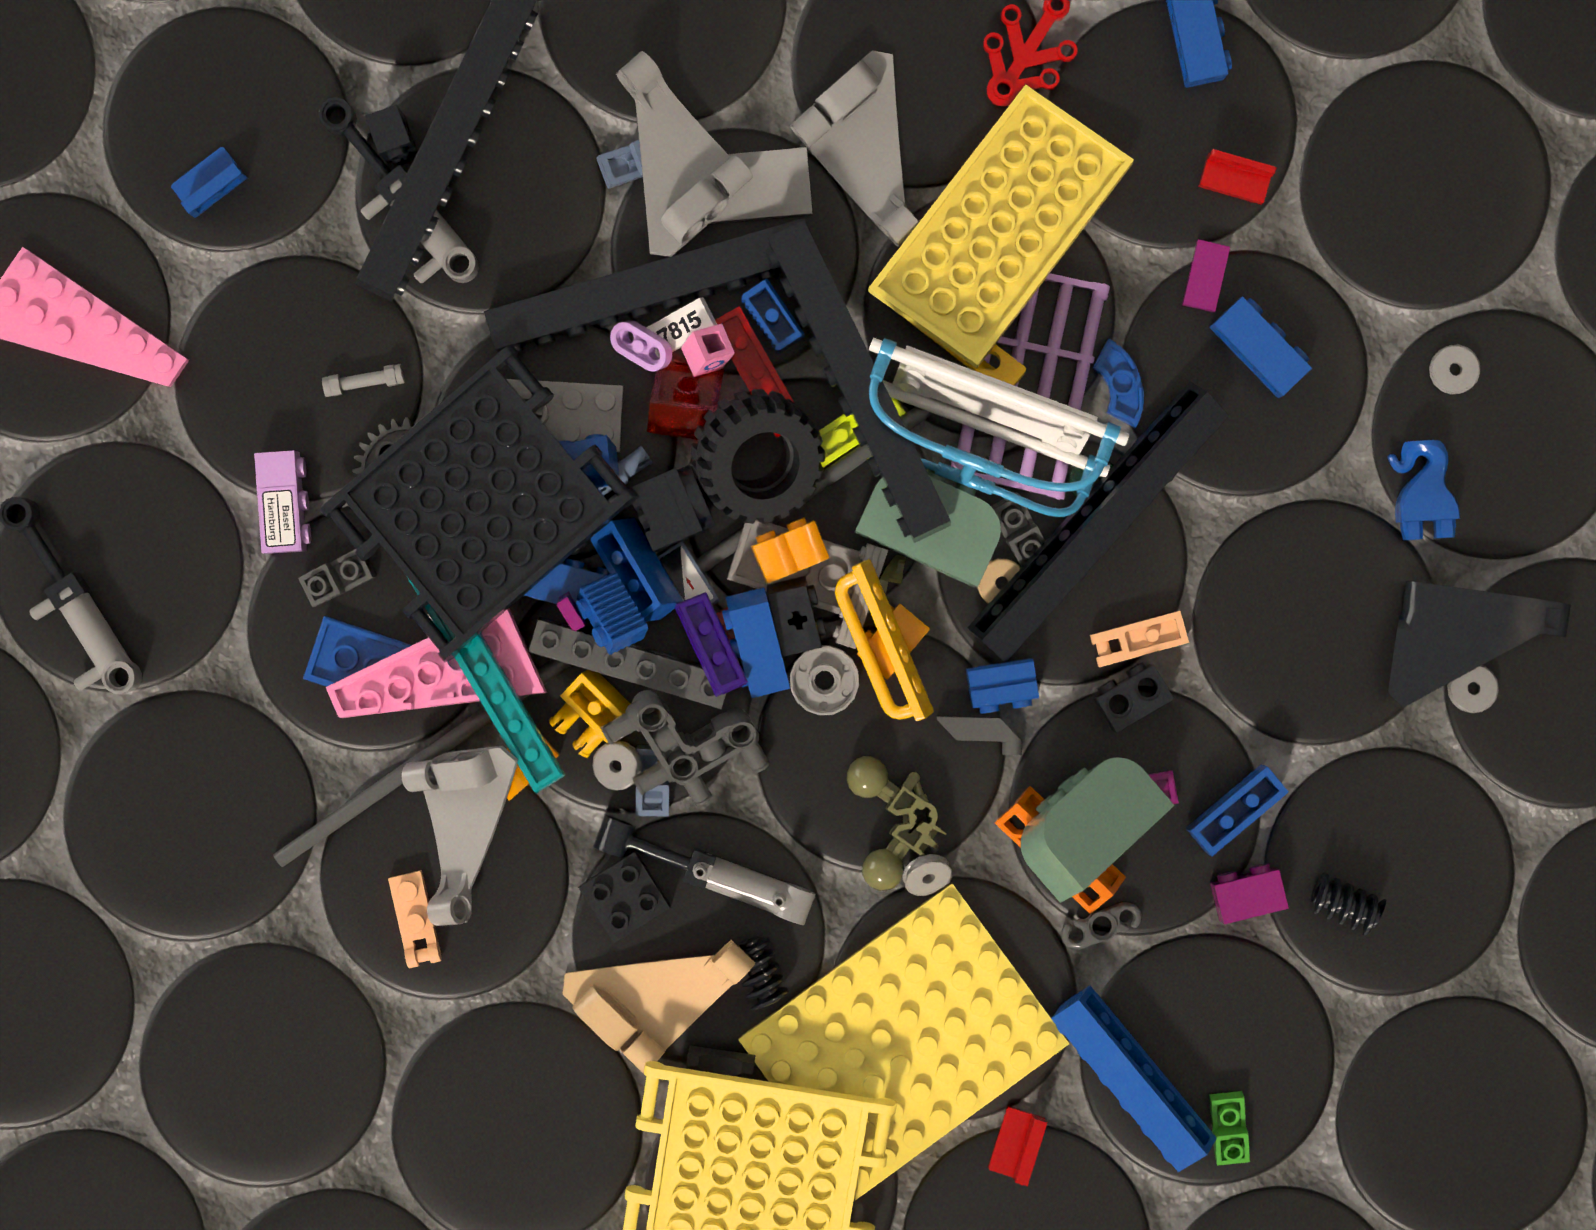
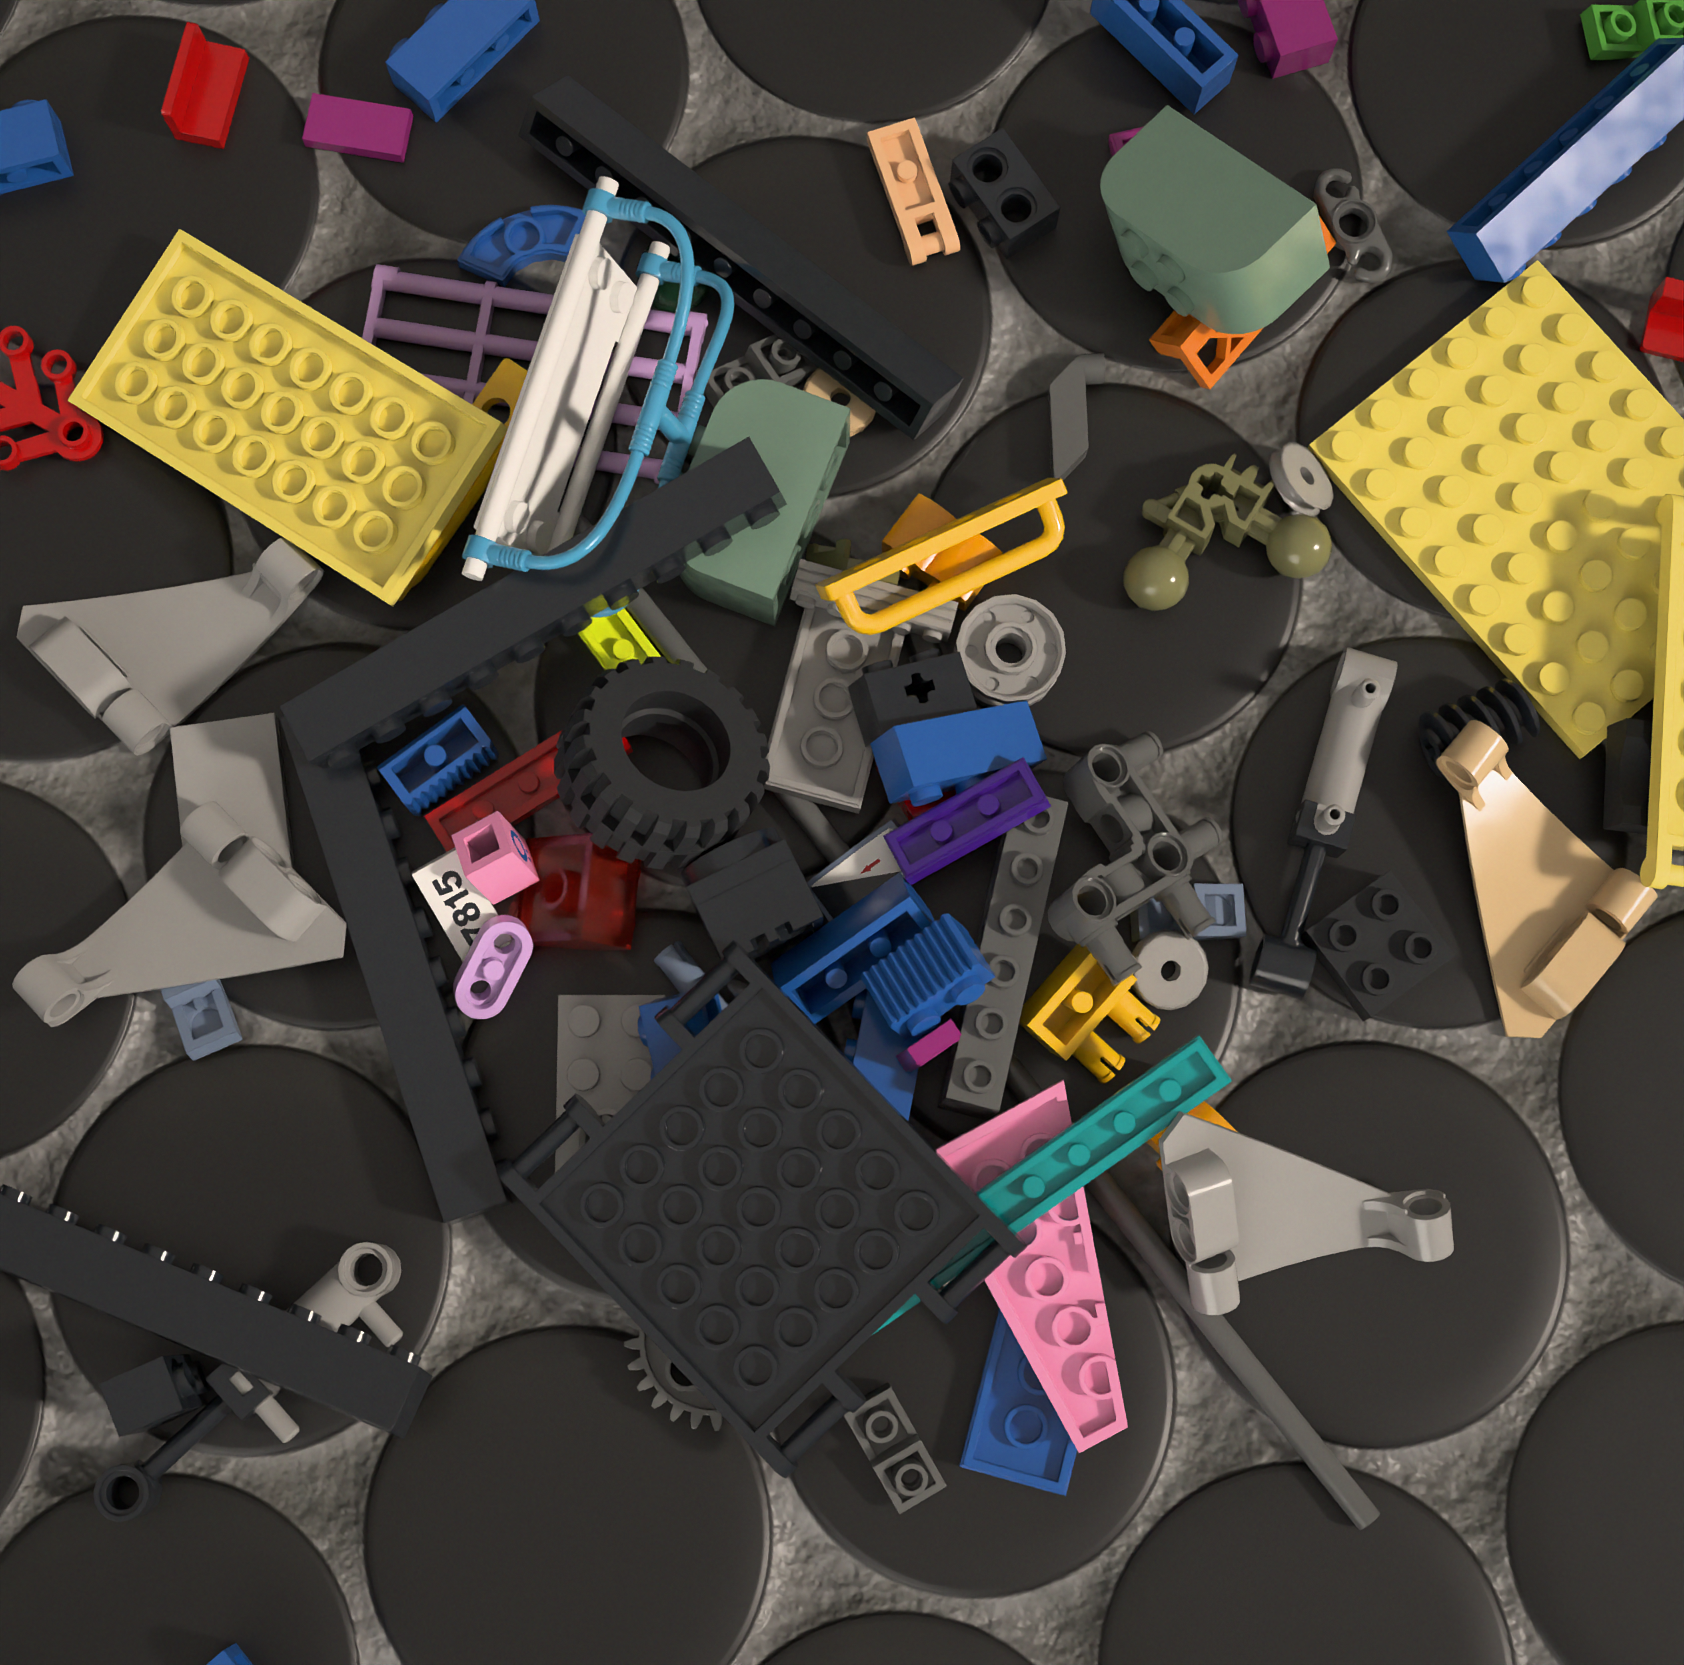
camera: 95 degrees left, 10 degrees down
(282, 502) = (774, 1548): lavender brick -> none
(391, 375) = (577, 1470): light grey bar -> none
(411, 905) = (1441, 1286): light nougat plate -> none
(790, 550) = (810, 708): light orange brick -> none
(1002, 684) = (997, 385): blue brick -> none

